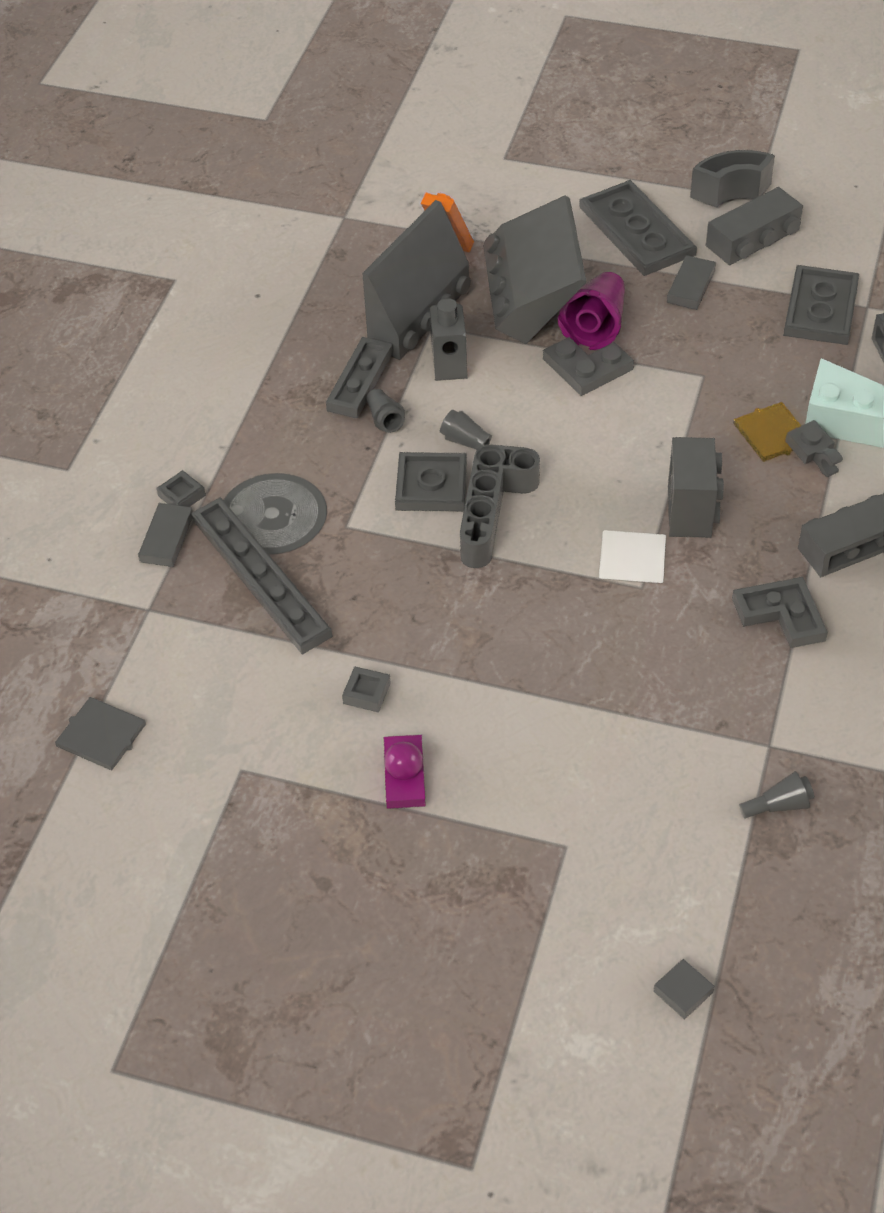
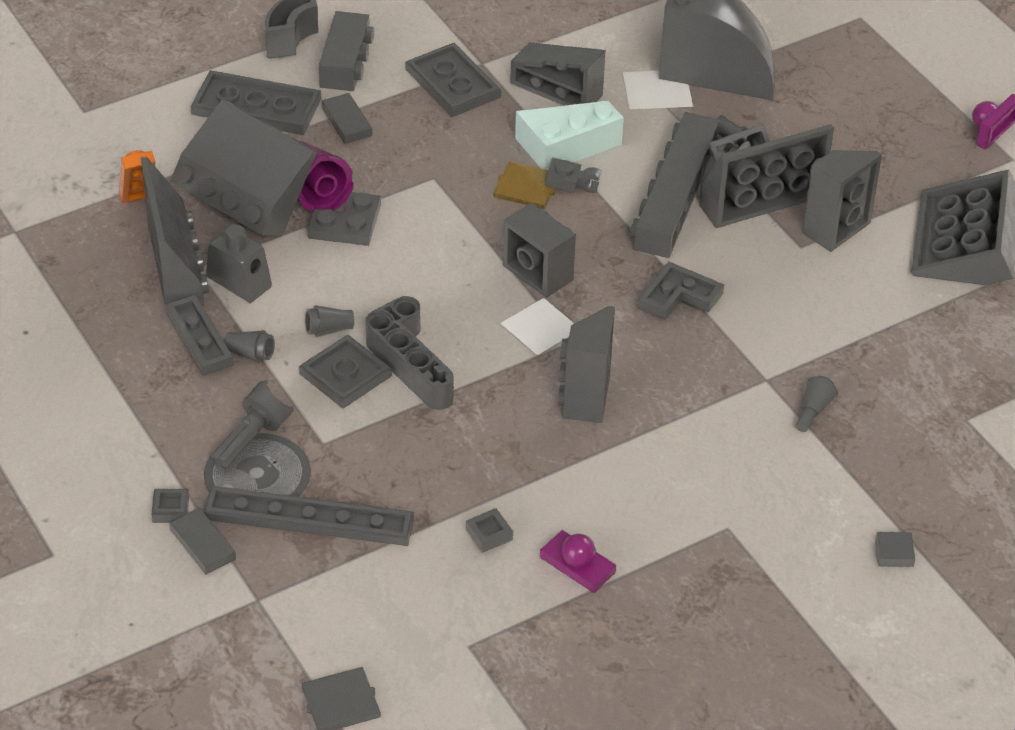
camera: 50 degrees left, 5 degrees down
(319, 466) = (262, 411): none -> dark grey piece
(595, 610) = (587, 367): none -> dark grey slope

